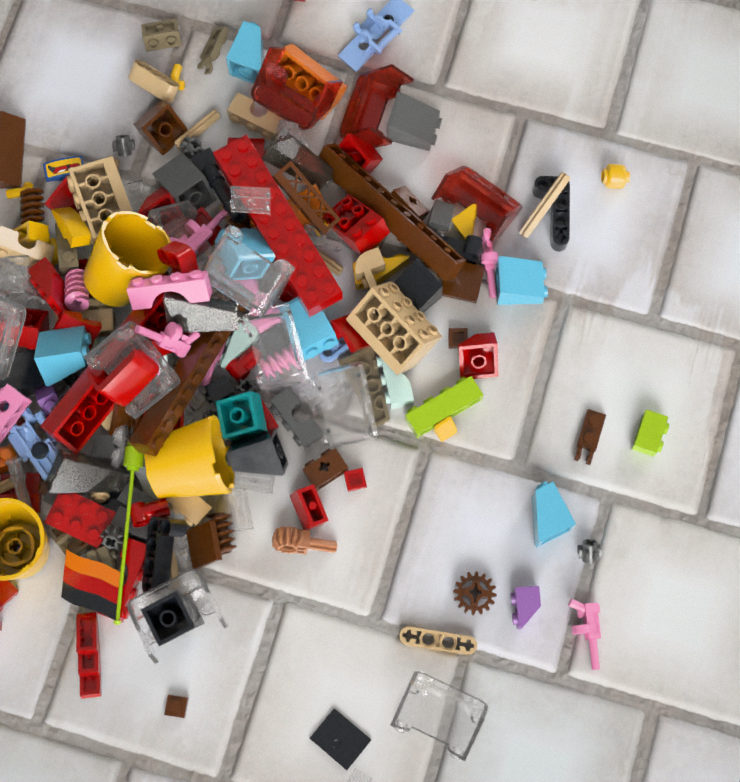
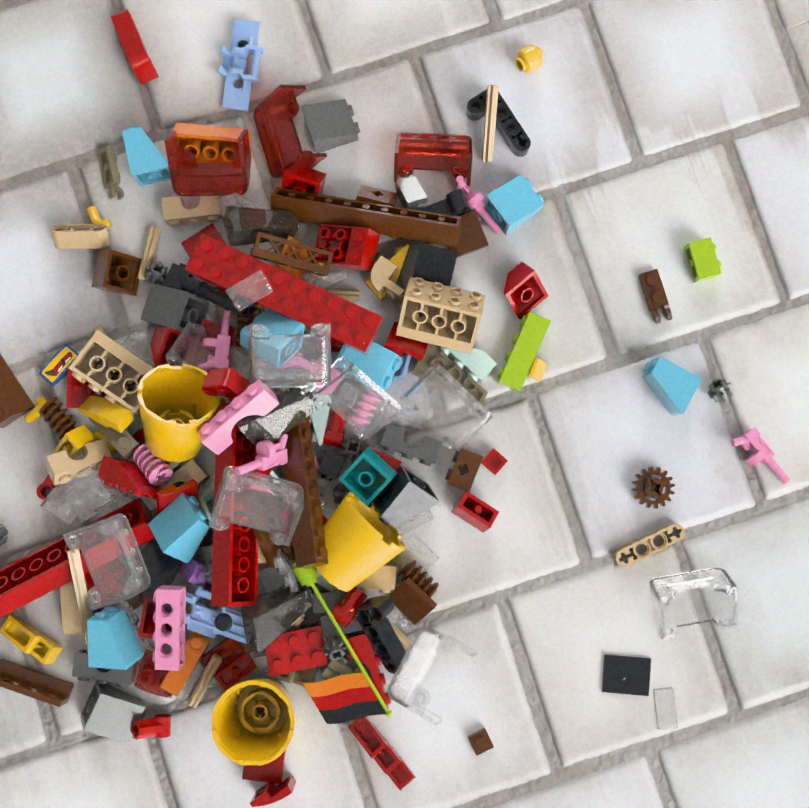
camera: 35 degrees left, 10 degrees up
(18, 478) = (221, 655): clear pin -> none
(123, 145) = (96, 310): dark grey gear -> none
(127, 378) = (259, 522): red piece -> none
(161, 35) = (56, 190): dark tan bracket -> none
(172, 617) = (435, 682): black slope -> none
(299, 541) = (486, 543): nougat gear -> none
(456, 337) = (494, 286): reddish brown plate -> none
(465, 221) = (433, 183): yellow slope -> none
(526, 604) = (699, 468): medium lavender slope -> none

